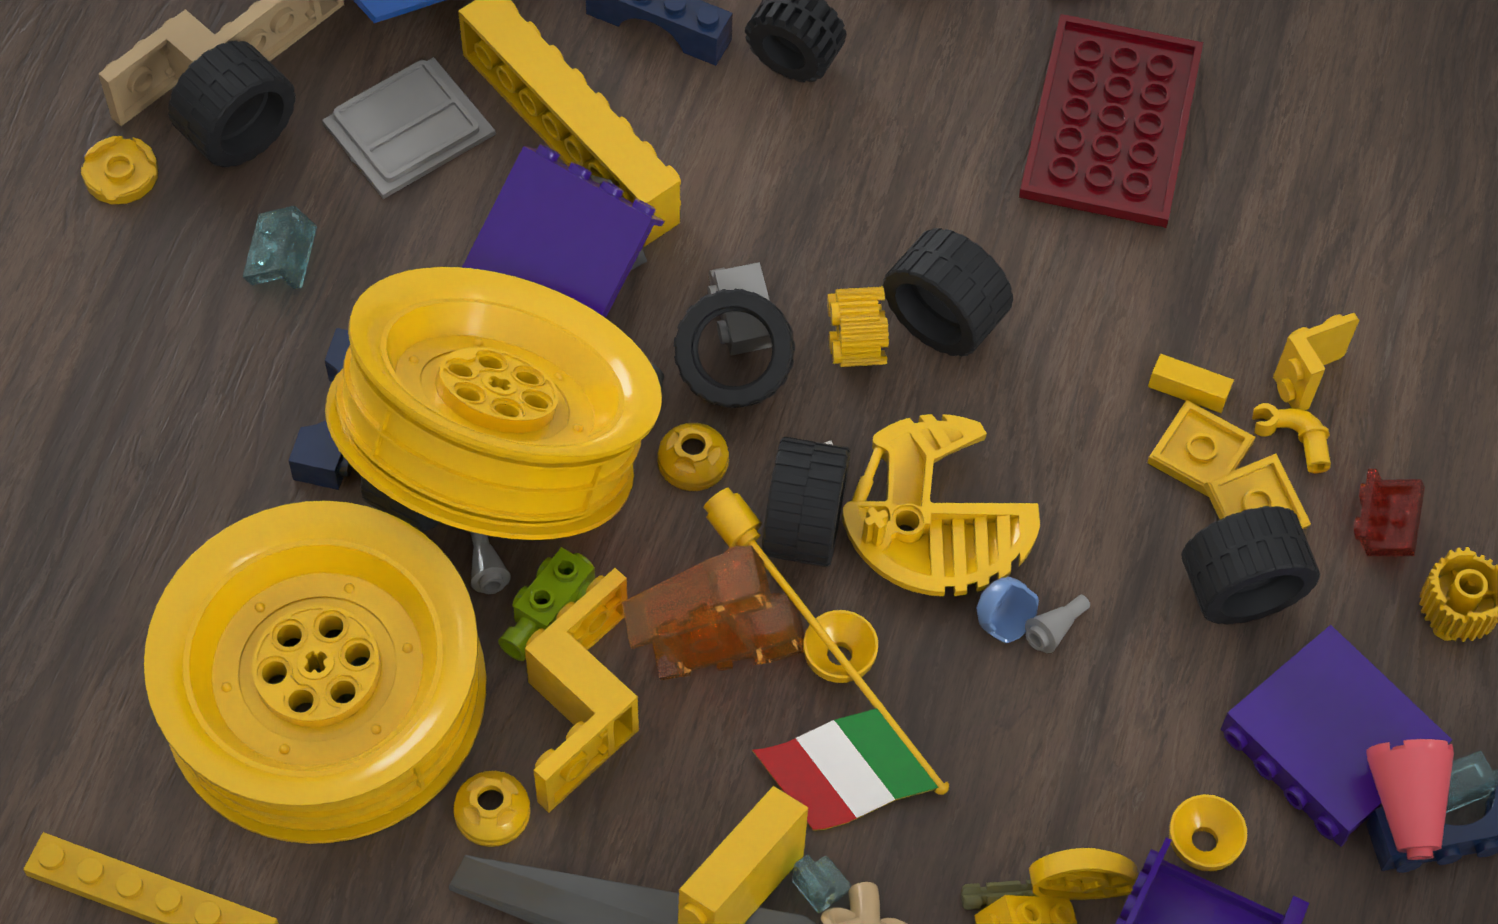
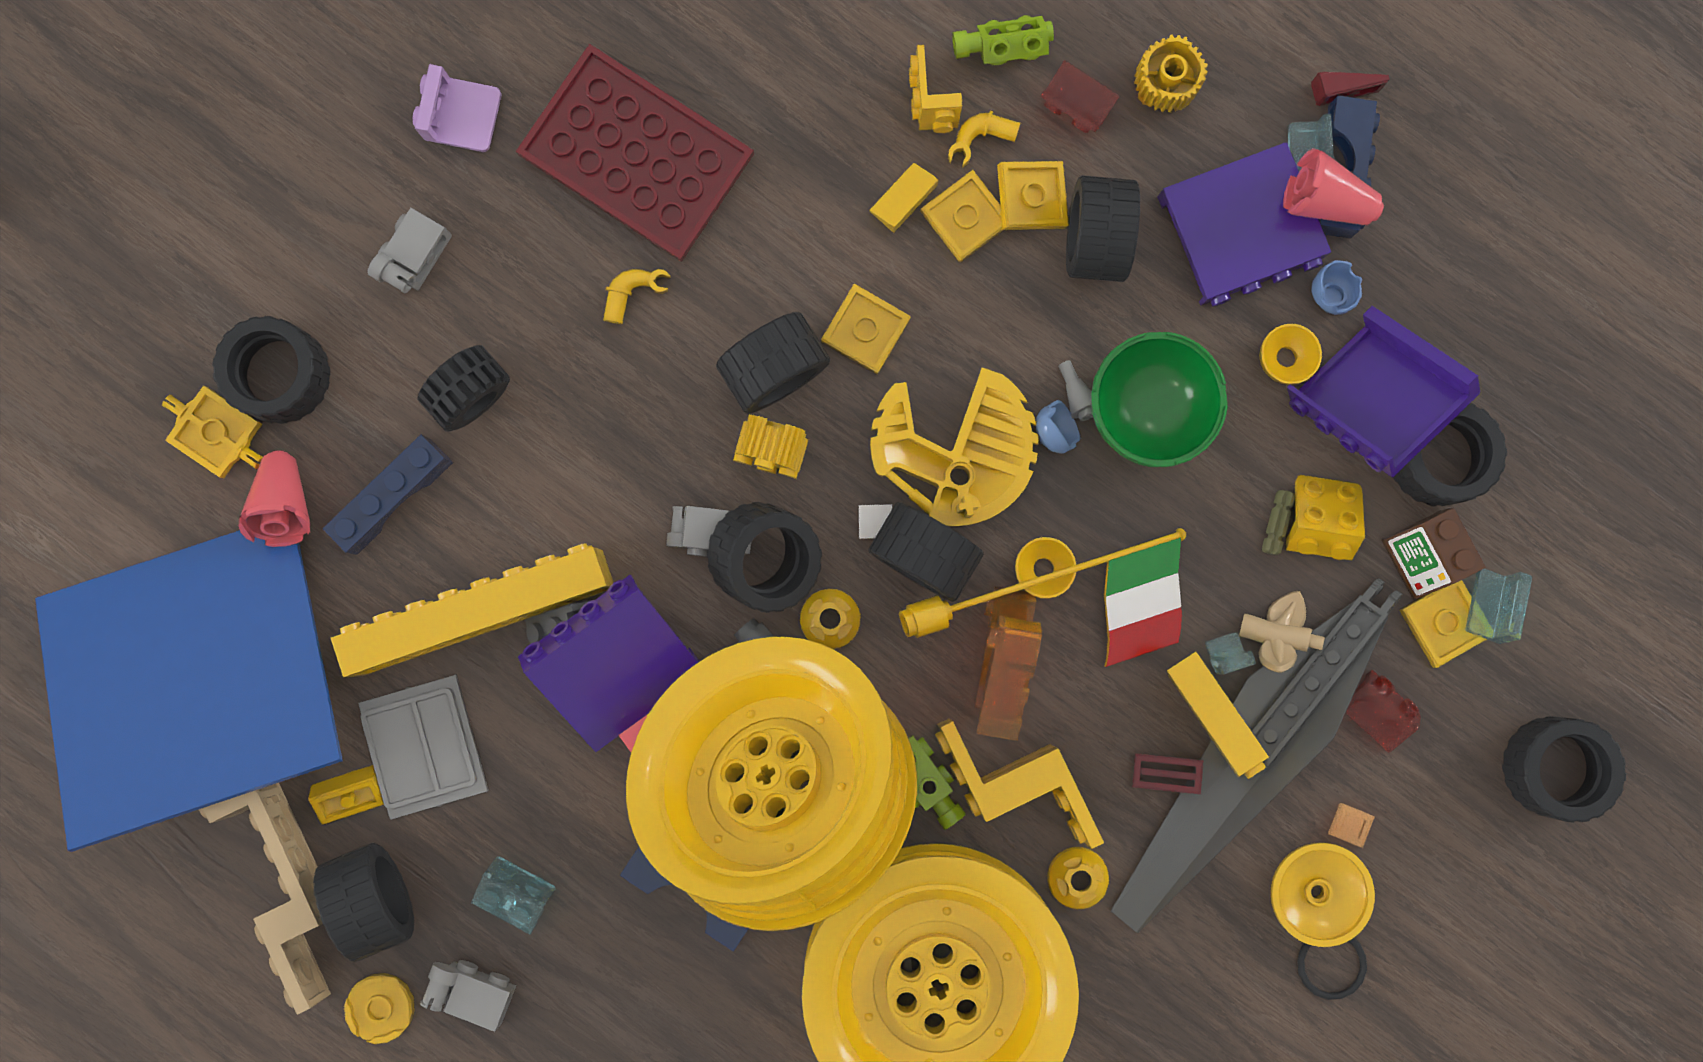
camera: 70 degrees left, 25 degrees up
(161, 238) = (469, 993): none -> light grey hinge
(331, 73) = (345, 795): none -> yellow slope
(659, 889) = (1165, 773): none -> dark red tile
(965, 149) = (621, 288): none -> yellow piece
(1029, 391) = (865, 329): none -> yellow tile
(1083, 874) = (1299, 461): yellow piece -> none
(1084, 683) = (1159, 399): none -> green piece
(1312, 860) = (1337, 288): none -> medium blue hair
(1403, 418) = (1008, 43): none -> lime brick

